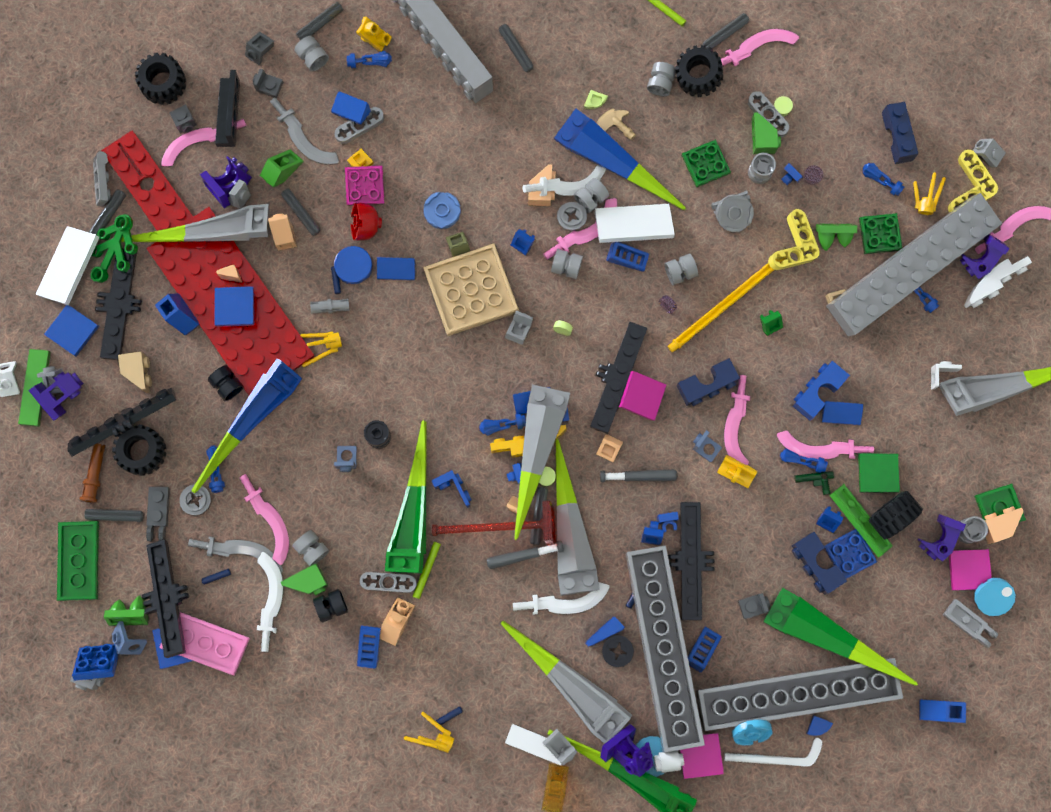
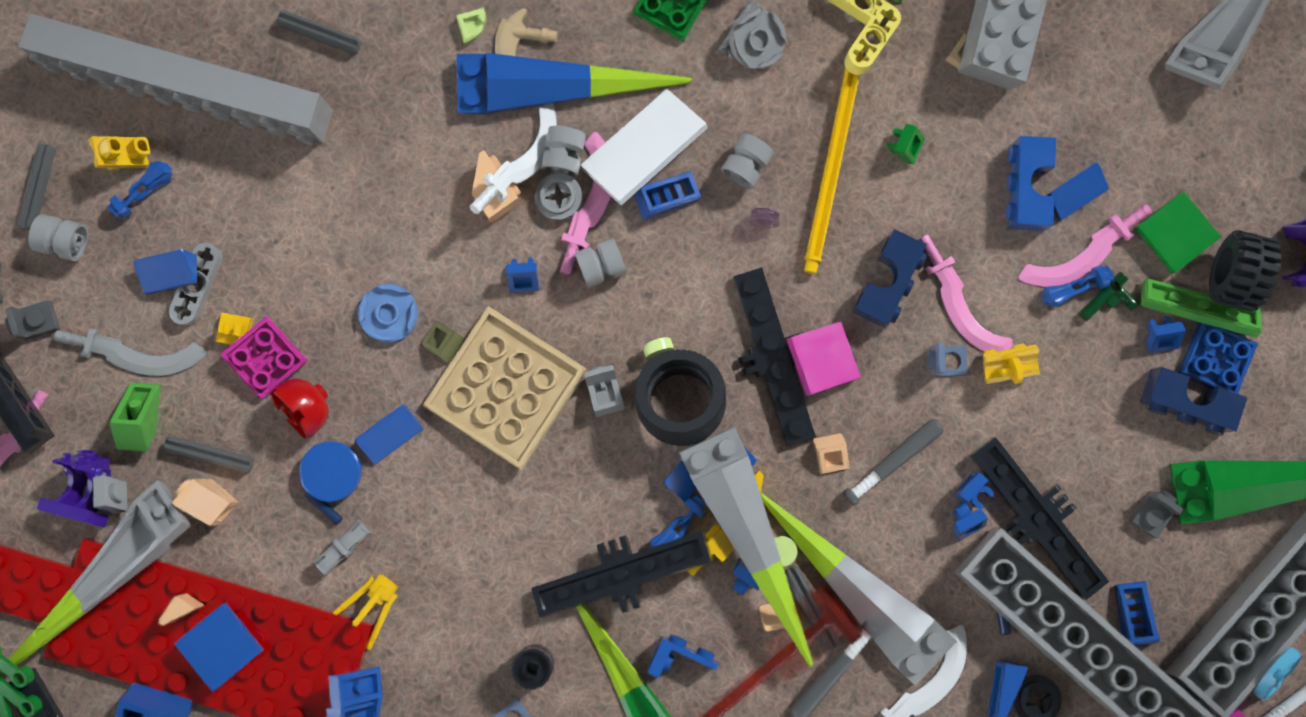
camera: 40 degrees left, 5 degrees up
(456, 423) = (621, 574): none -> black hinge
(554, 338) = (680, 363): none -> black tyre
(944, 366) = (1150, 51): white bracket -> none

